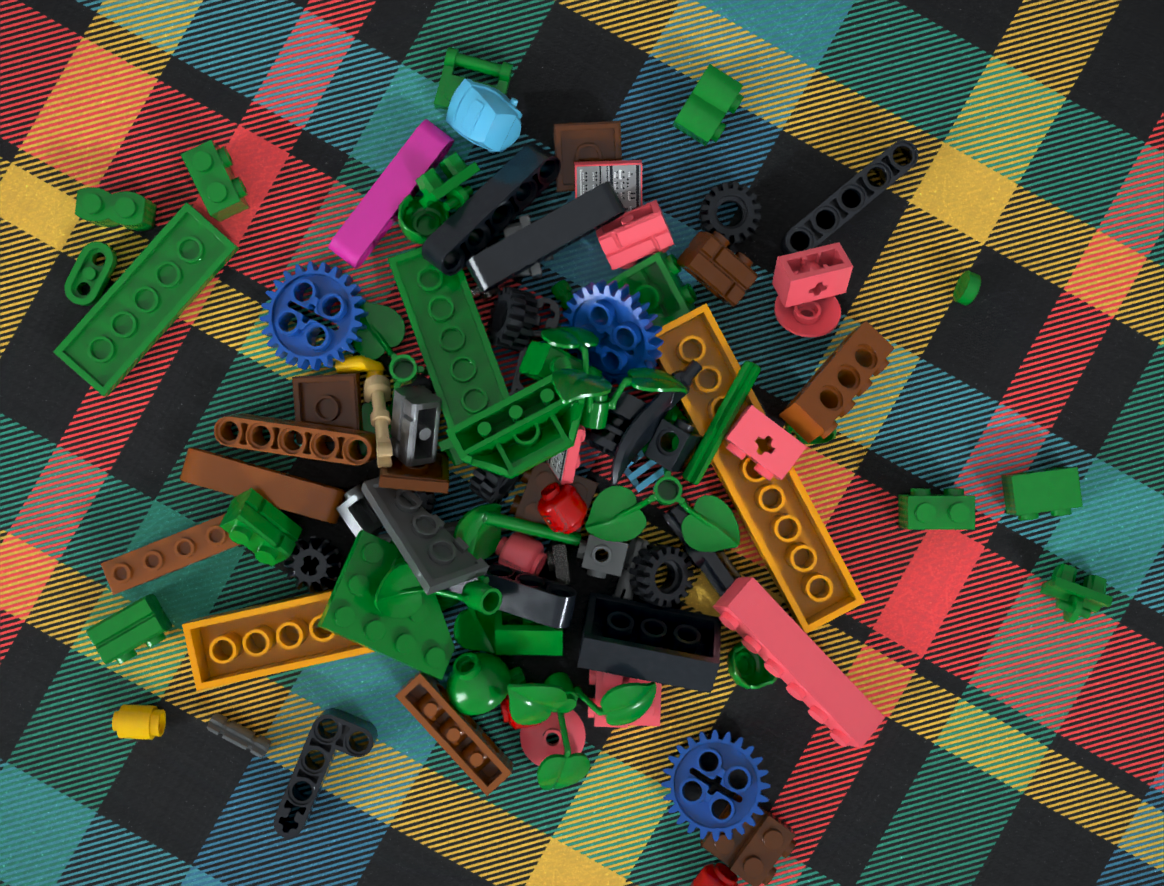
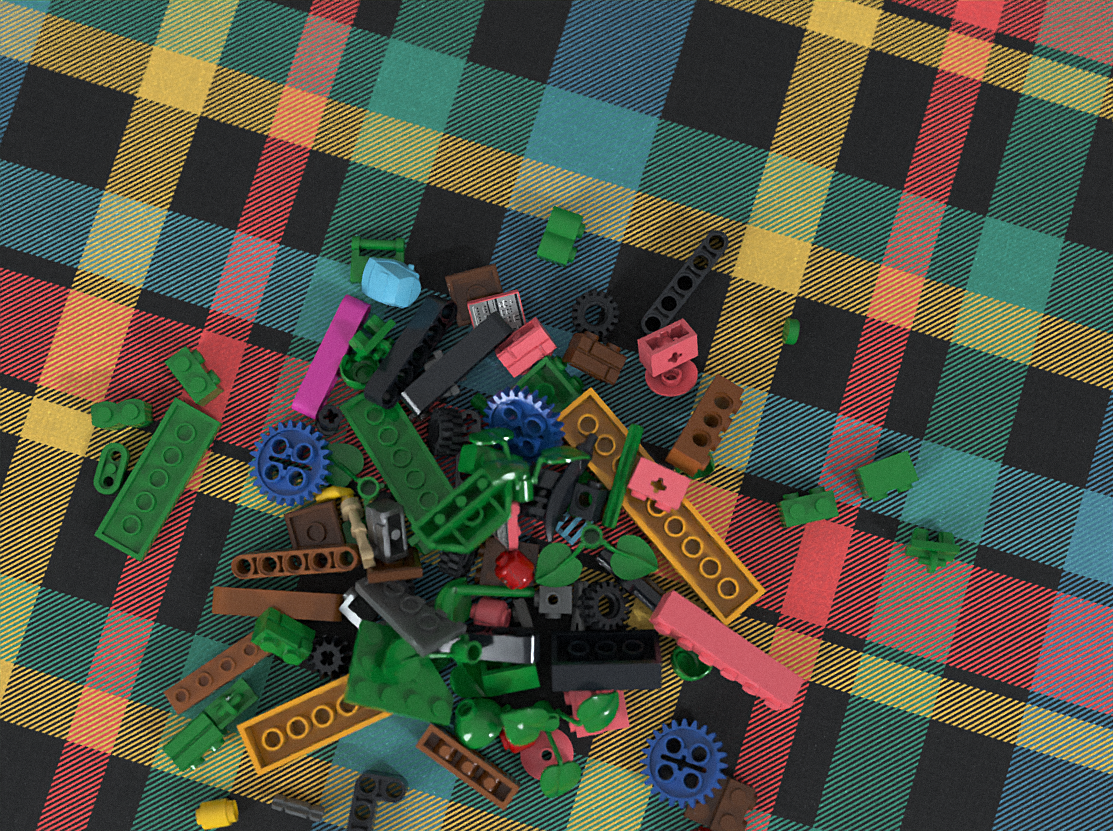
camera: 10 degrees left, 5 degrees down
(182, 594) = (231, 703): none -> green hips
(379, 268) = (334, 415): none -> black bush

